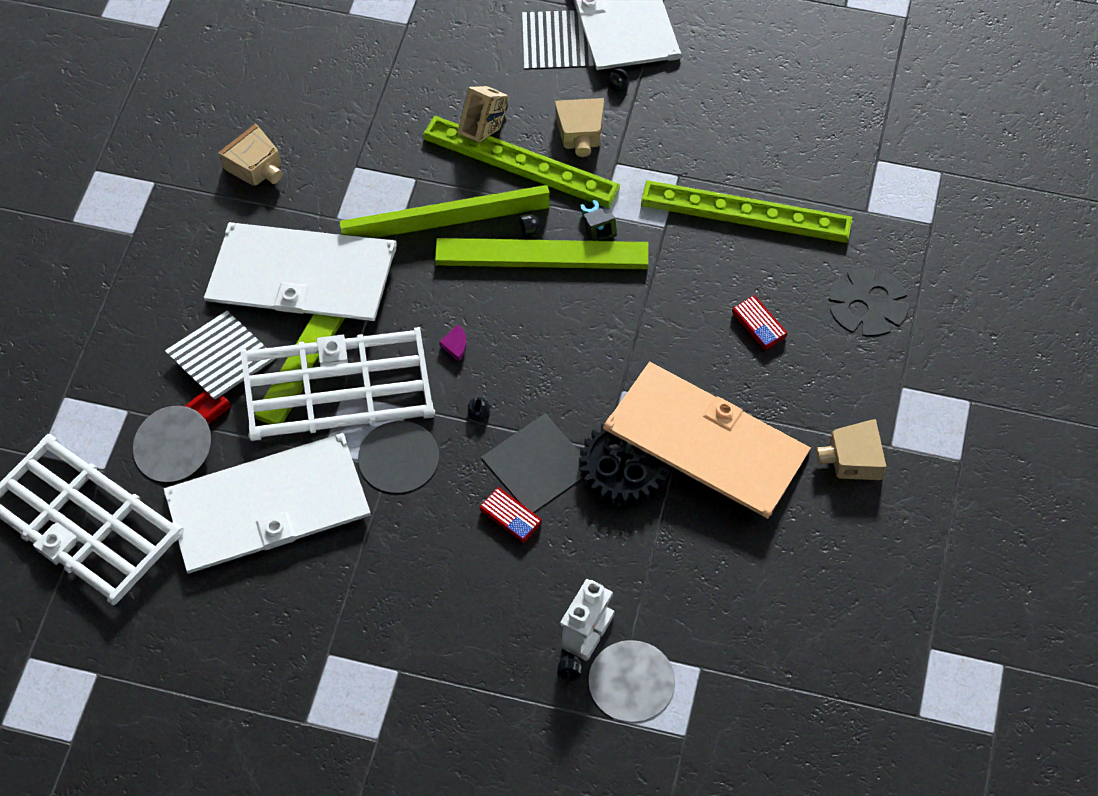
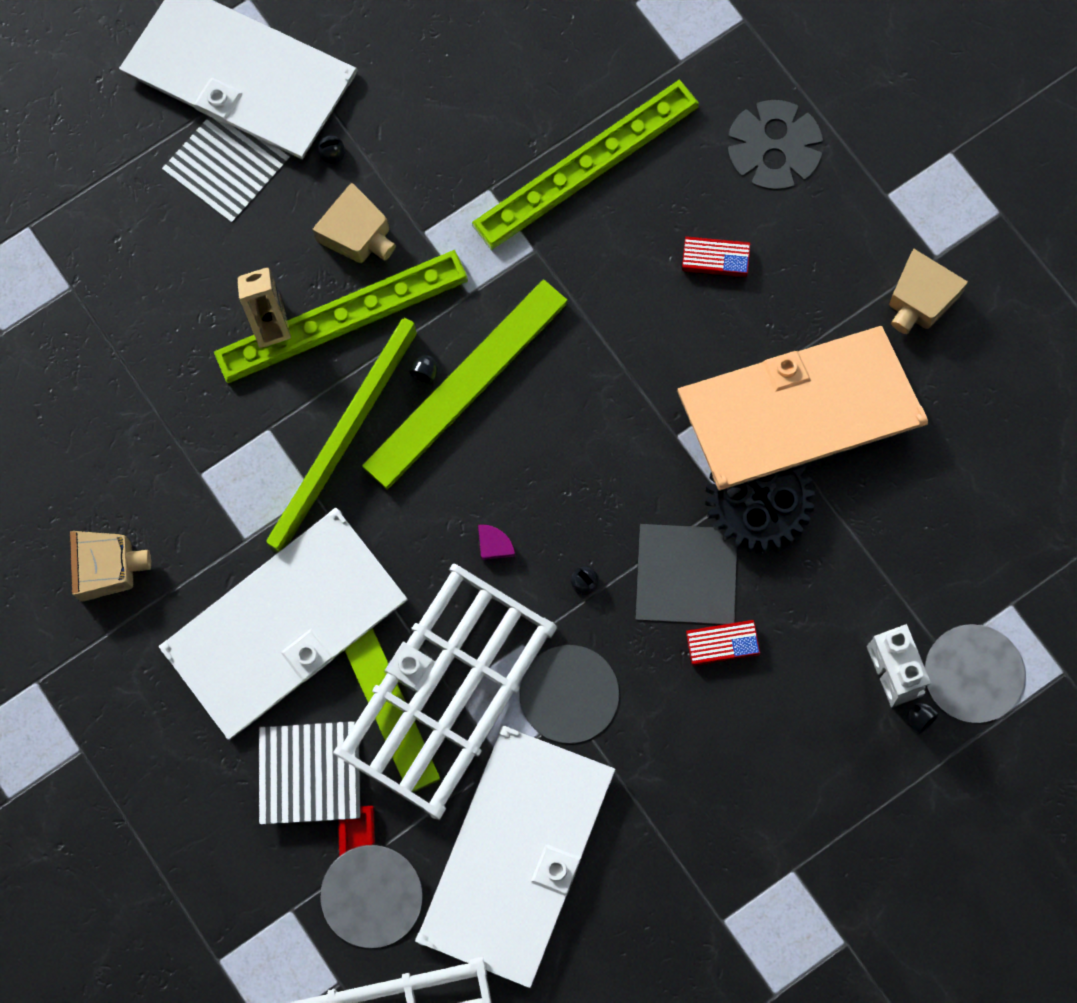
camera: 45 degrees left, 15 degrees up
(598, 224) = (481, 307): piece -> none

